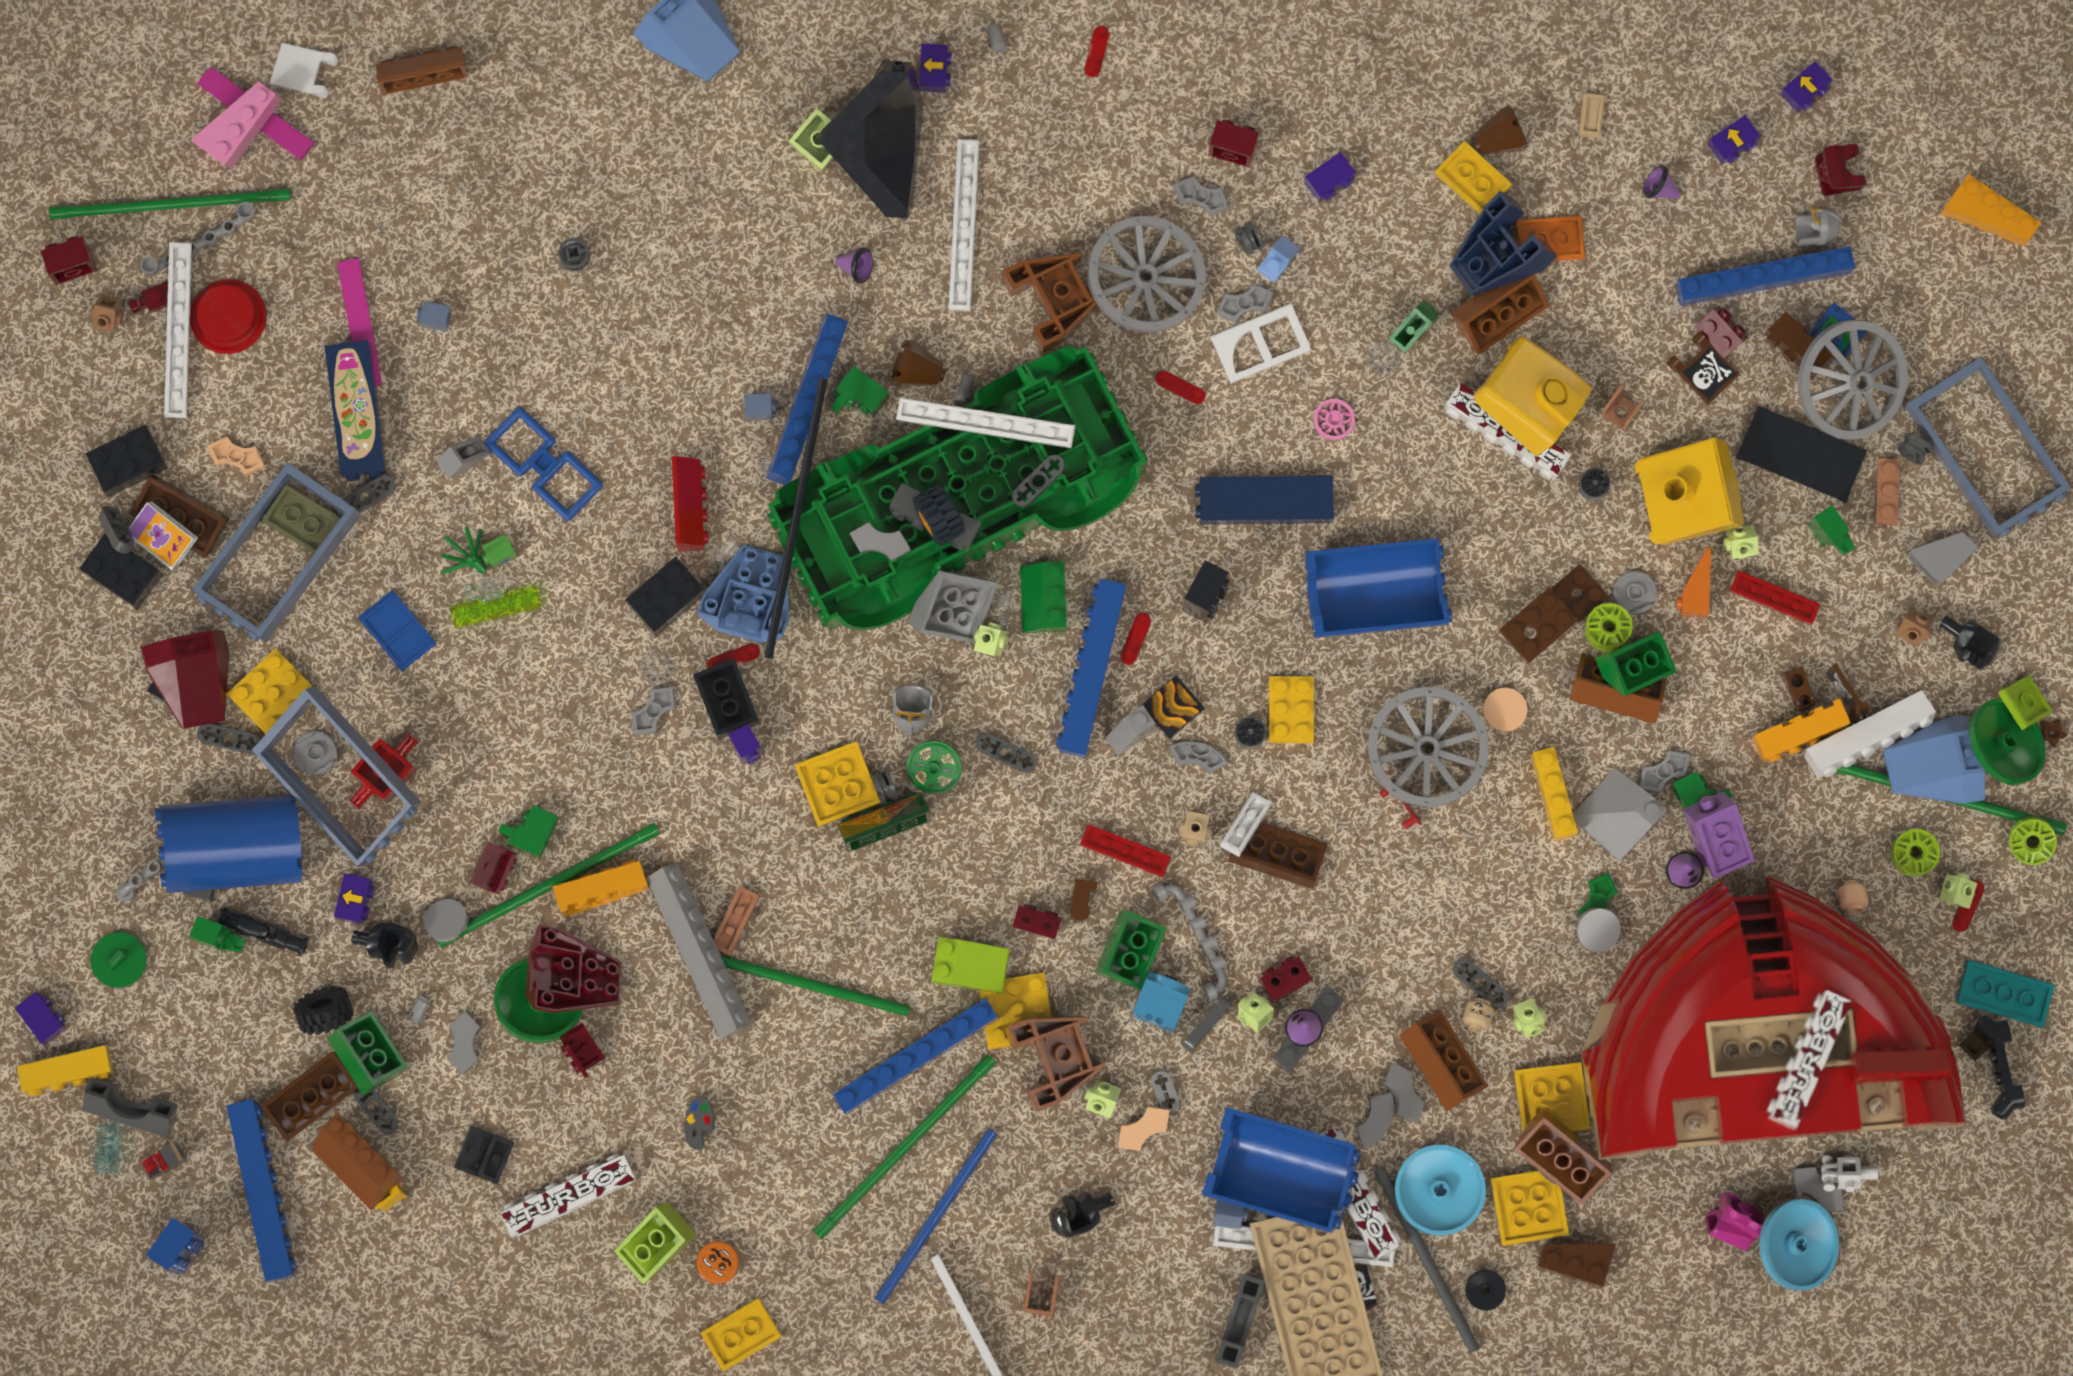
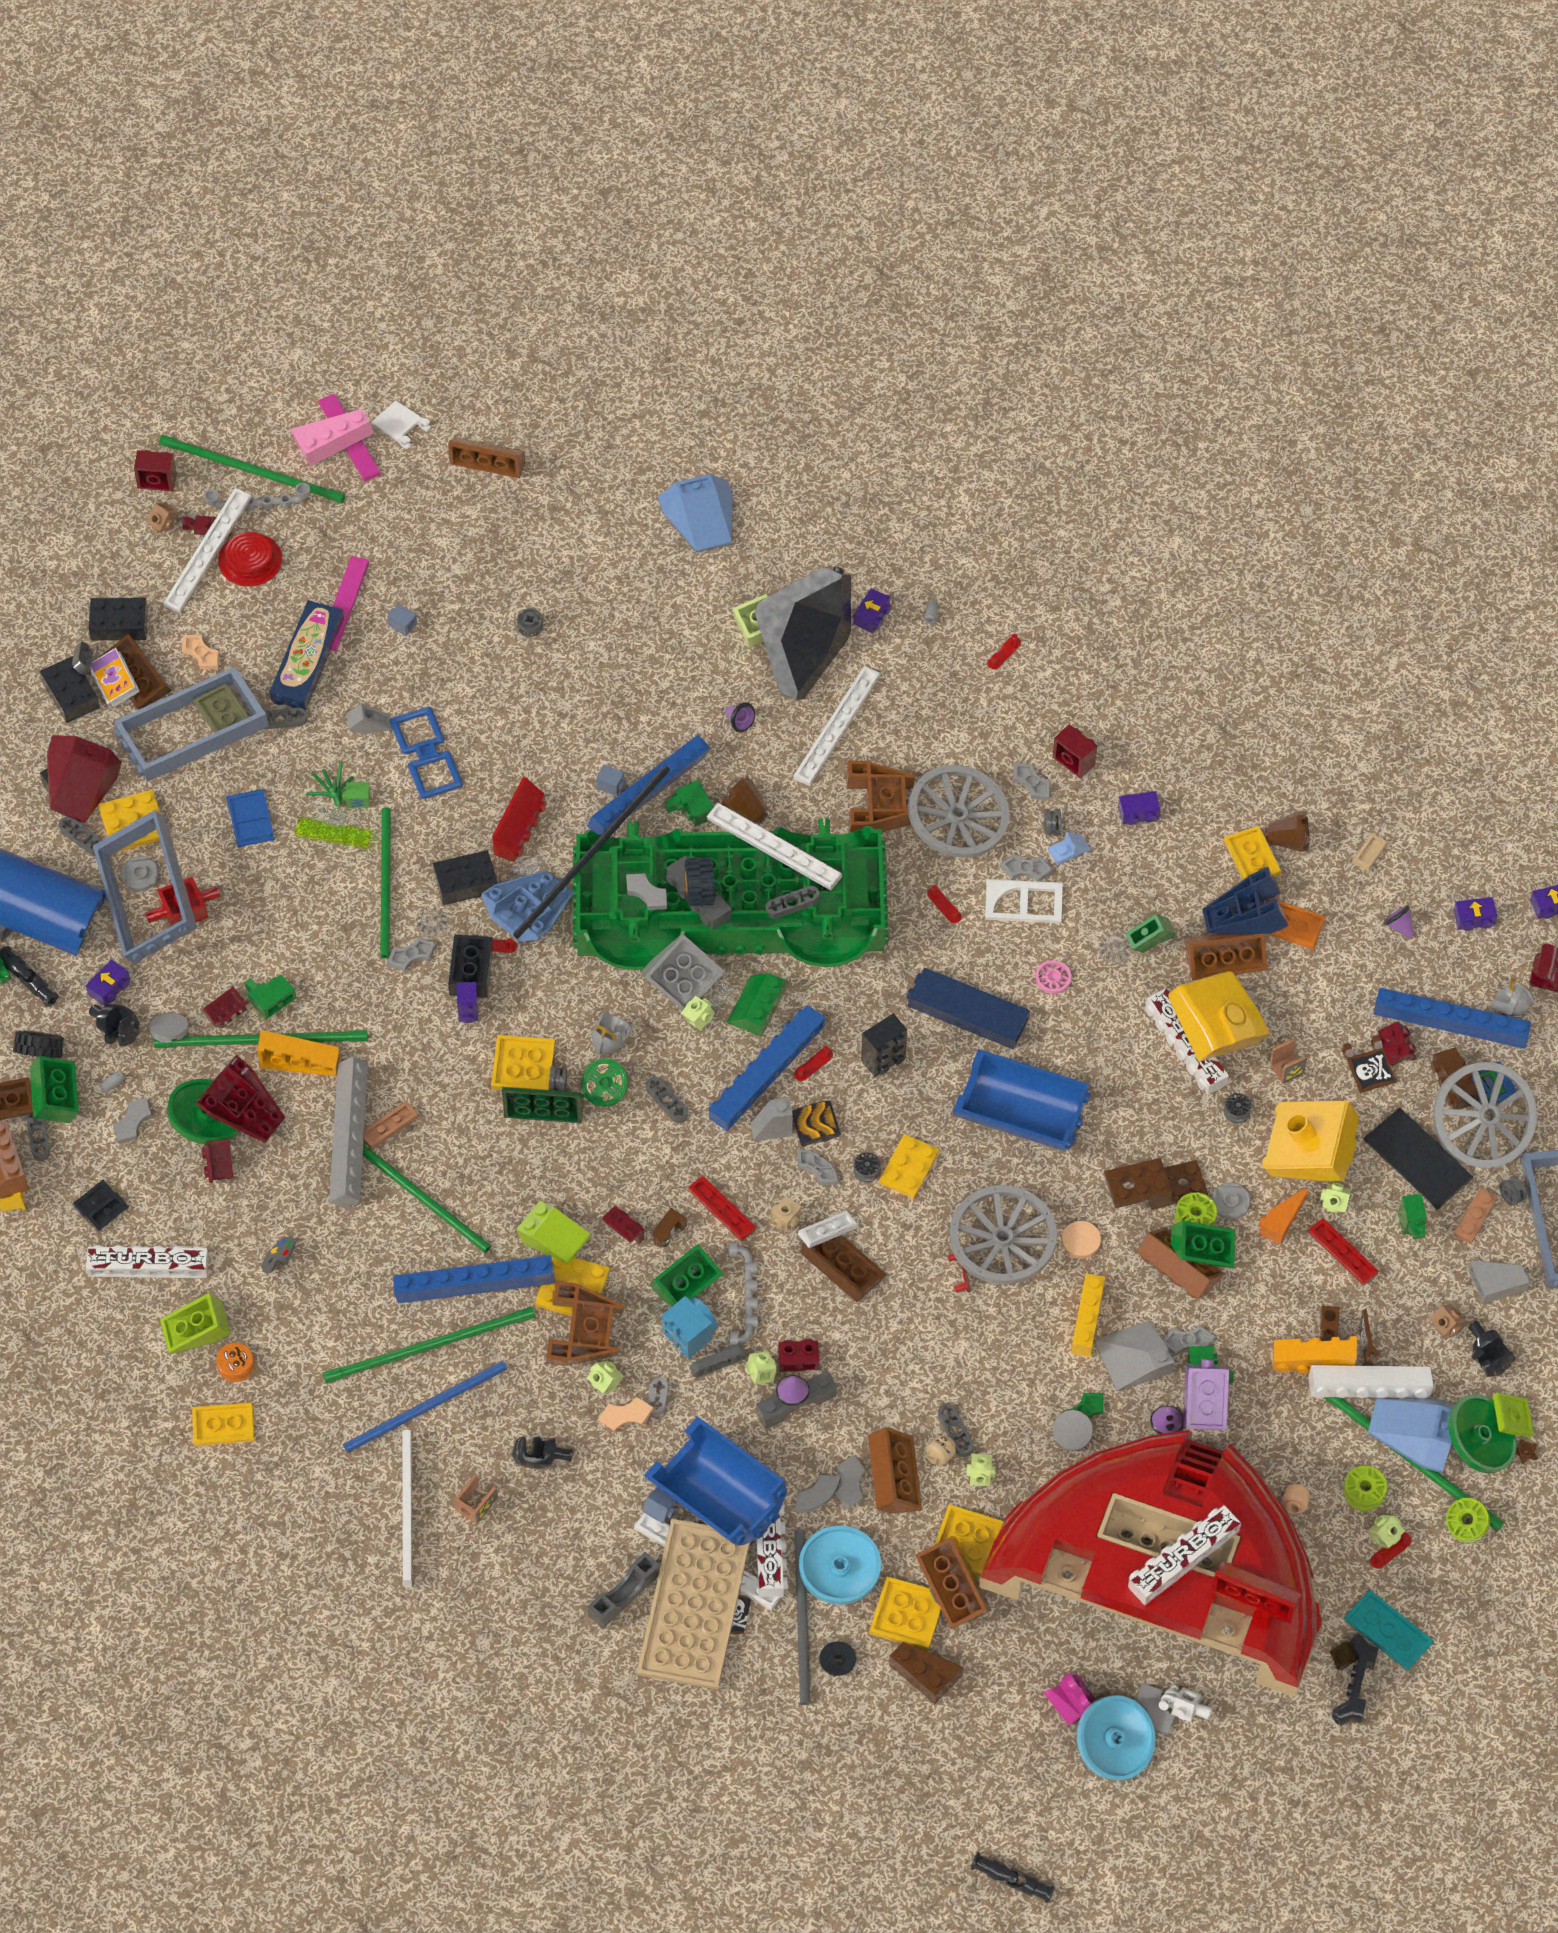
camera: 25 degrees right, 20 degrees down
(582, 640) = (385, 882): none -> green piece

